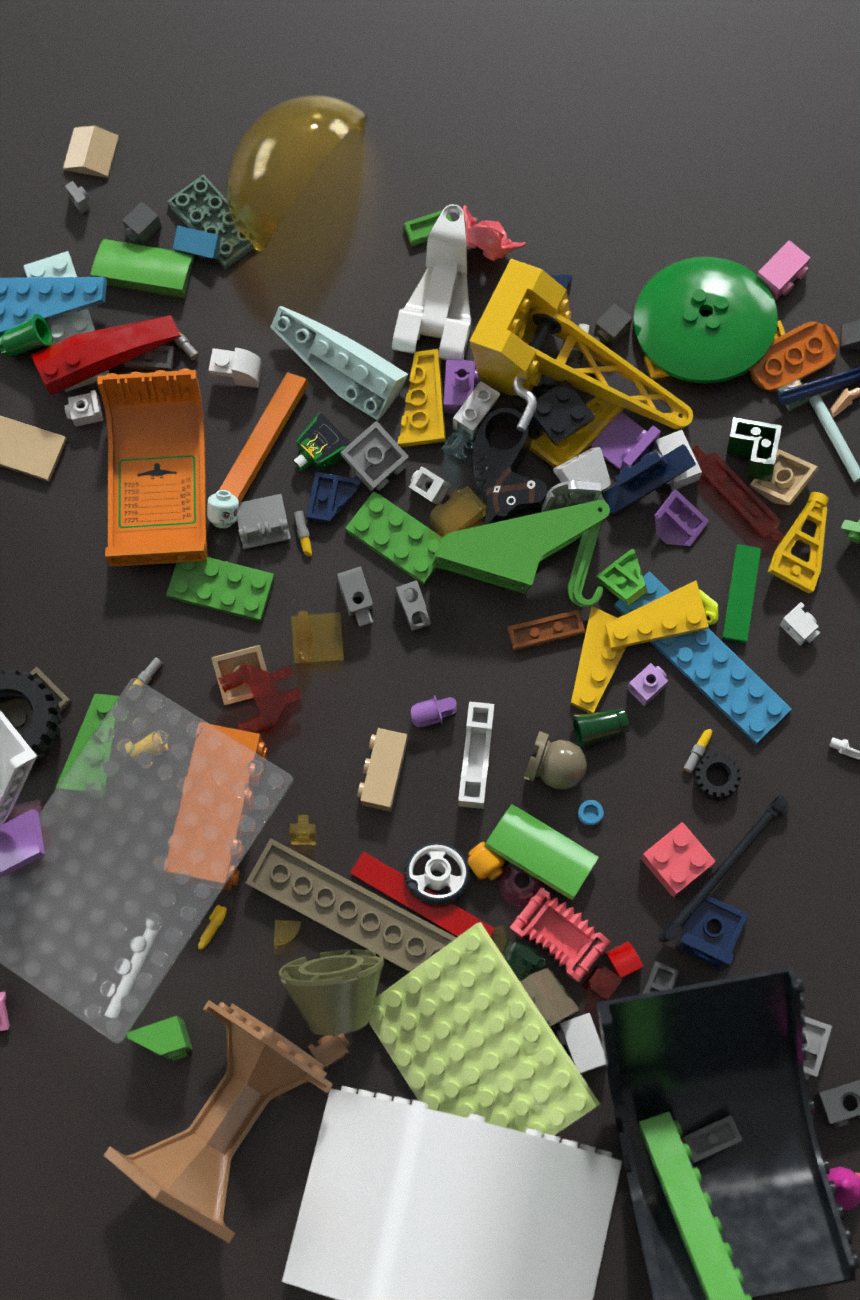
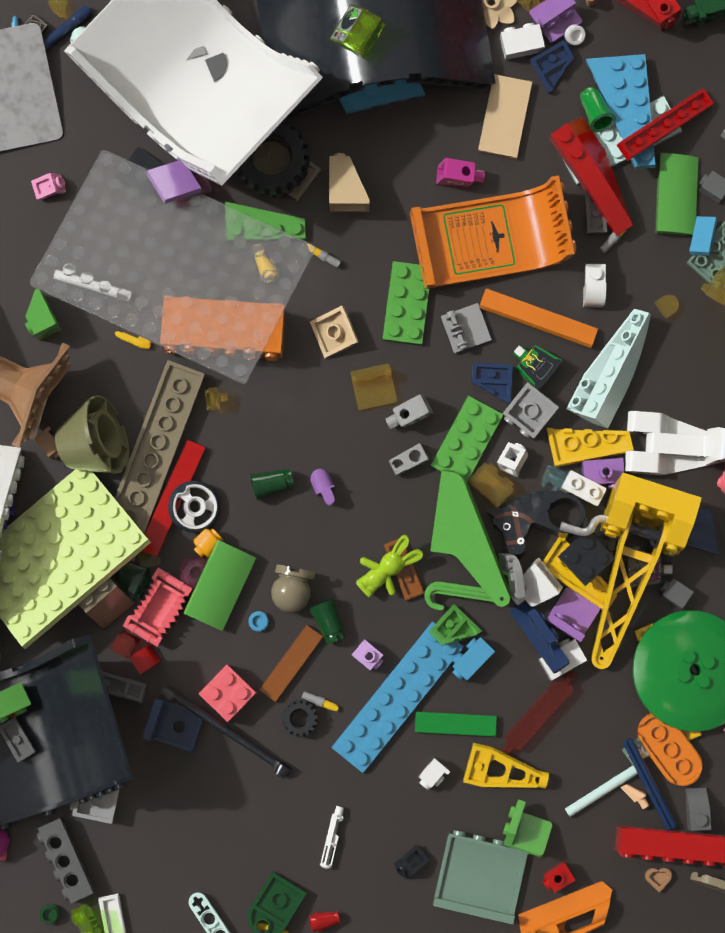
camera: 80 degrees right, 10 degrees up
(58, 262) = (665, 124): none -> red tile
(63, 635) = (345, 186): none -> tan slope
(72, 504) = (451, 170): none -> dark pink torso
(89, 414) = (542, 175): white brick -> none
(222, 509) = (469, 294): light aqua head -> none
(264, 692) = (320, 352): clear red connector -> none
(272, 293) = (667, 305): none -> clear yellow tile
(285, 931) = (136, 396): clear yellow tile -> none
(303, 533) = (460, 362): light grey piece -> none
(383, 769) = (271, 453): tan brick -> none
(420, 775) = (271, 482): none -> dark green plant
(476, 755) = (290, 525): white arch -> none
(541, 641) = (390, 565): none -> lime animal
(582, 1043) = (82, 626): white brick -> none
(596, 663) = (386, 614): yellow wing -> none
(647, 779) = (291, 663): none -> dark orange tile
(663, 618) = (423, 662): yellow wing -> none
(665, 562) = (472, 659): none -> dark azure brick
(678, 521) = (509, 666): medium lavender slope -> none
(710, 608) = (440, 699): neon yellow arm -> none
(758, 442) = (584, 726): dark green brick -> none
(788, 479) = (559, 749): tan slope -> none

